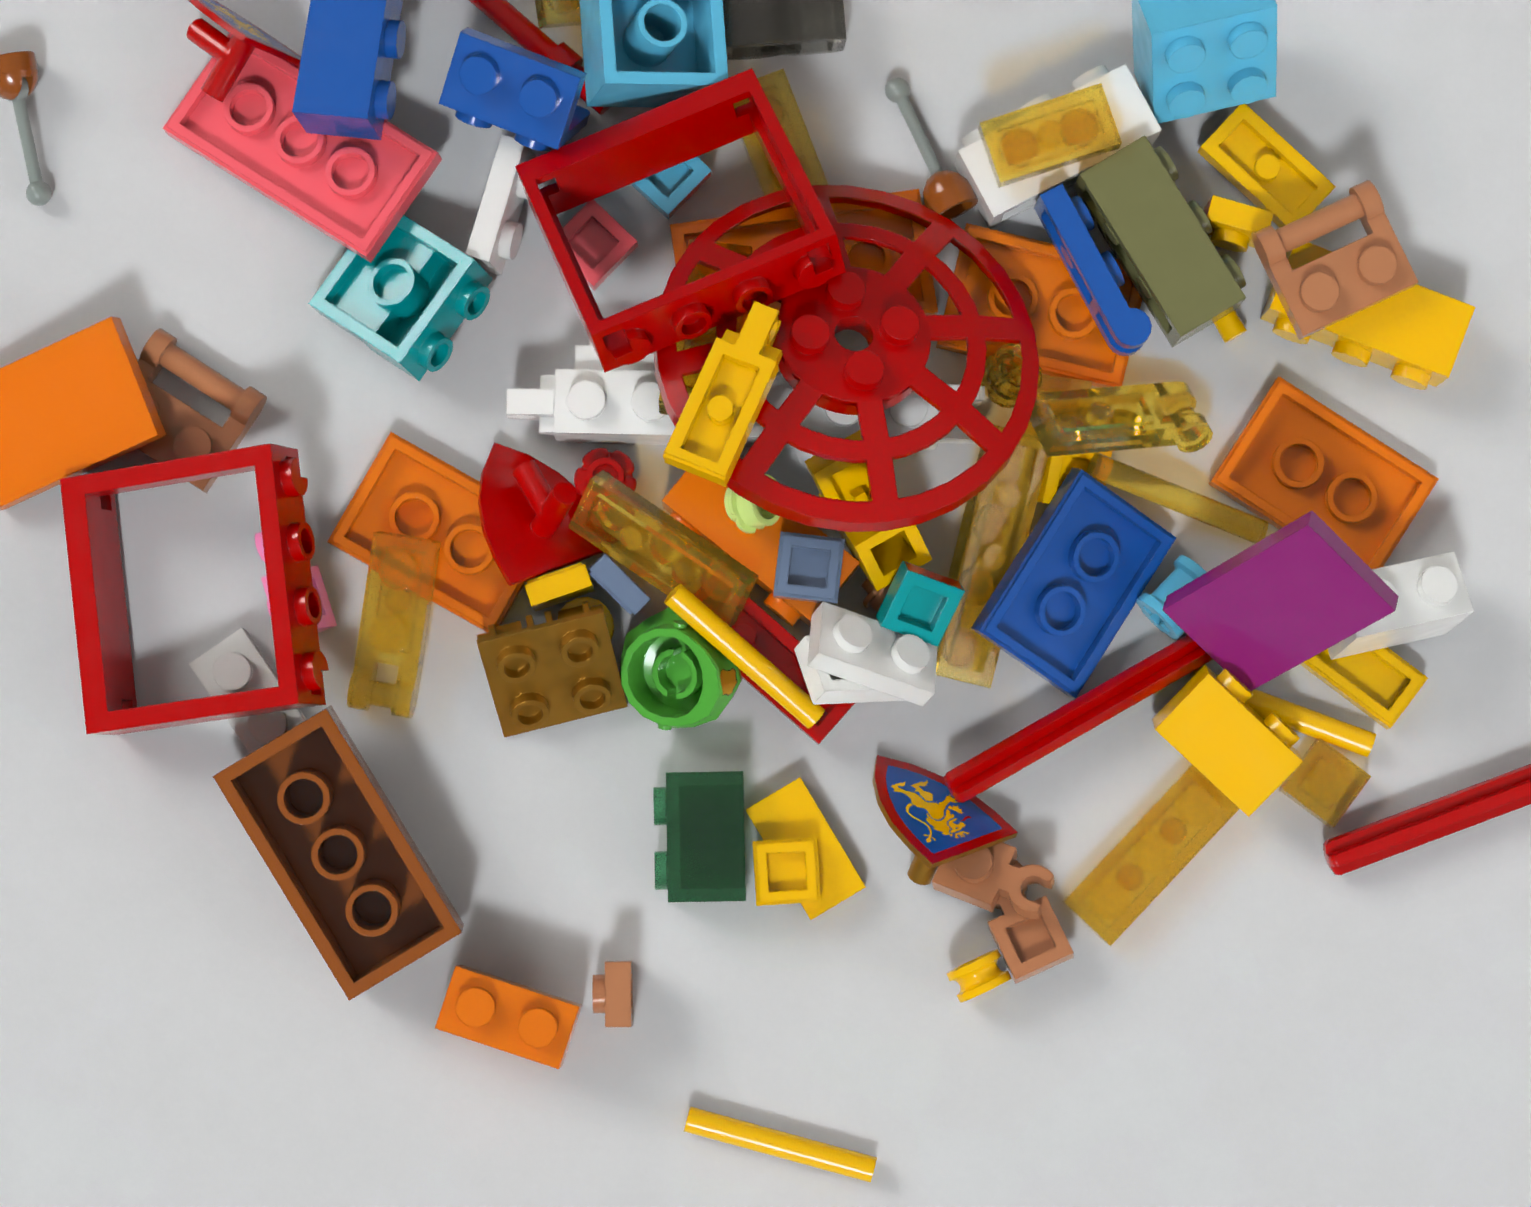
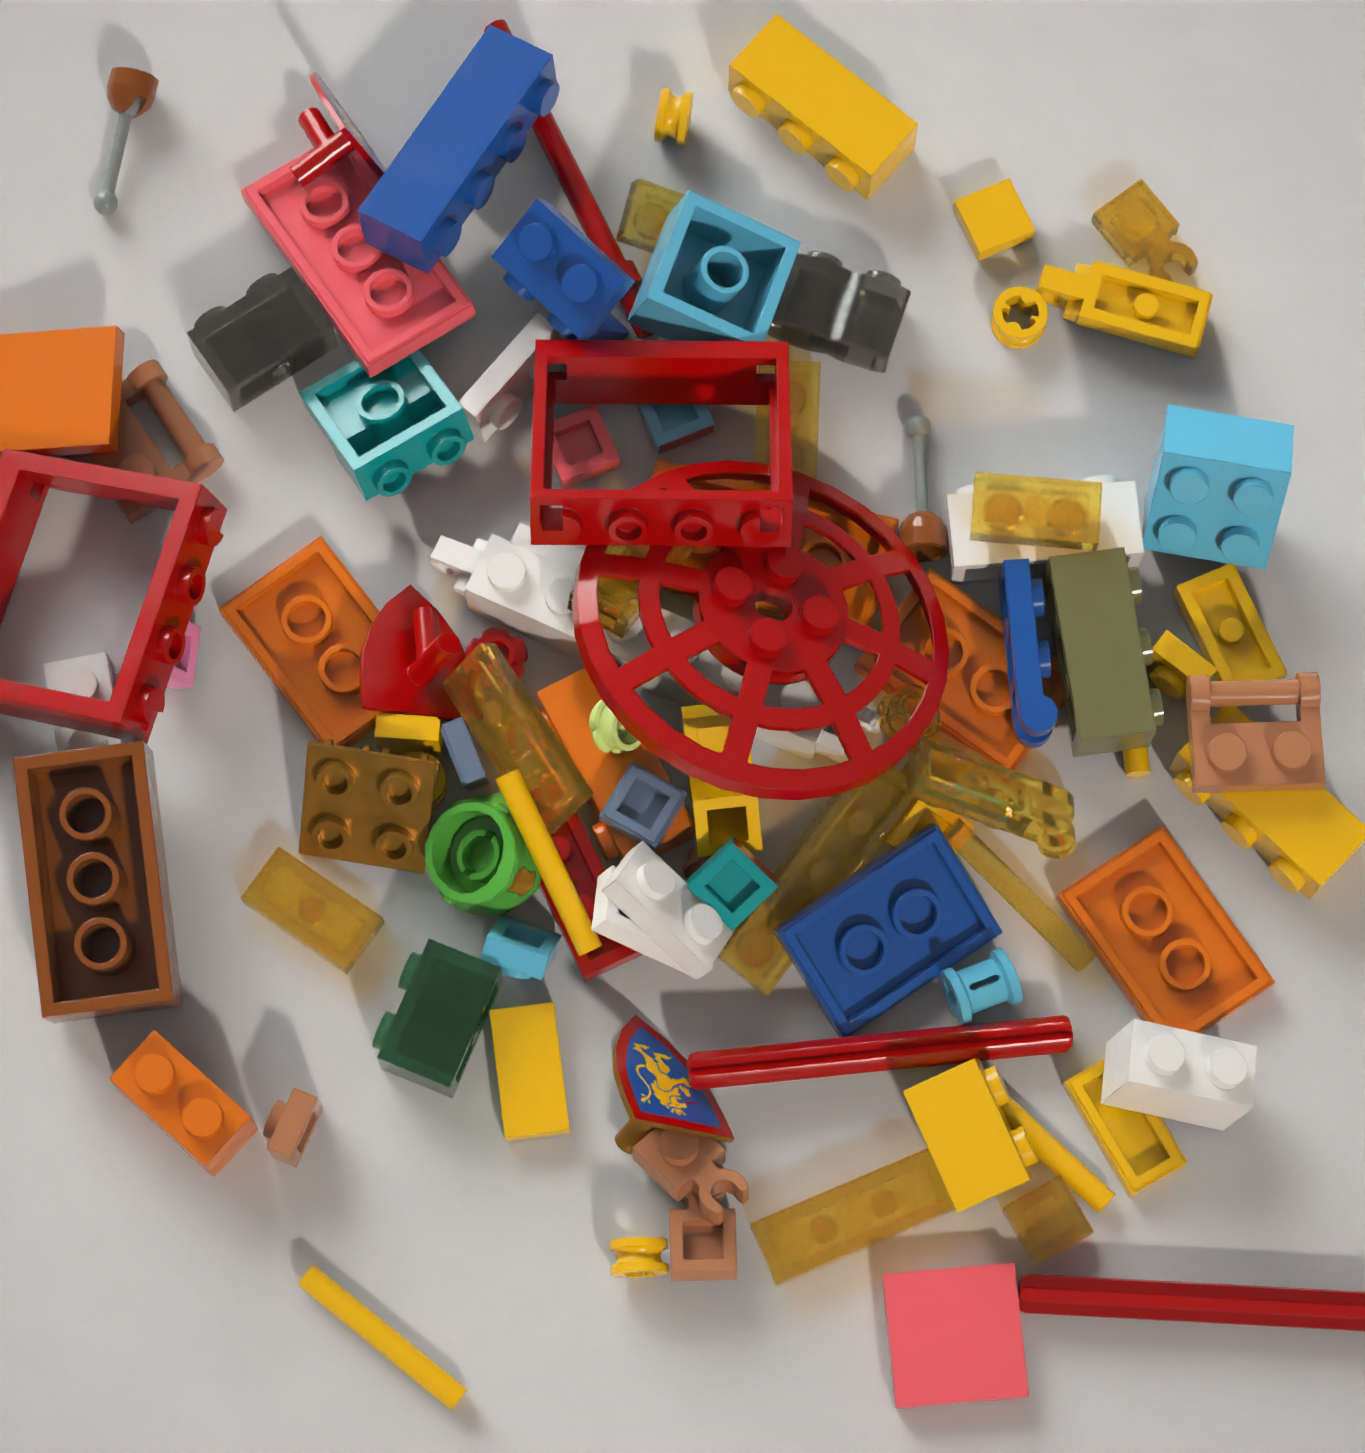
camera: 30 degrees right, 10 degrees down
(248, 265) = (261, 337): none -> clear smoke brick
(394, 622) = (244, 704): clear yellow plate -> none
(541, 785) = (312, 910): none -> clear yellow plate
(727, 398) = (628, 605): yellow hinge -> none
(749, 741) = (520, 948): none -> medium azure plate
(786, 871) = (501, 1081): yellow tile -> none
(1281, 601) = (1069, 1016): magenta tile -> none
(1286, 922) = (955, 1336): none -> coral tile

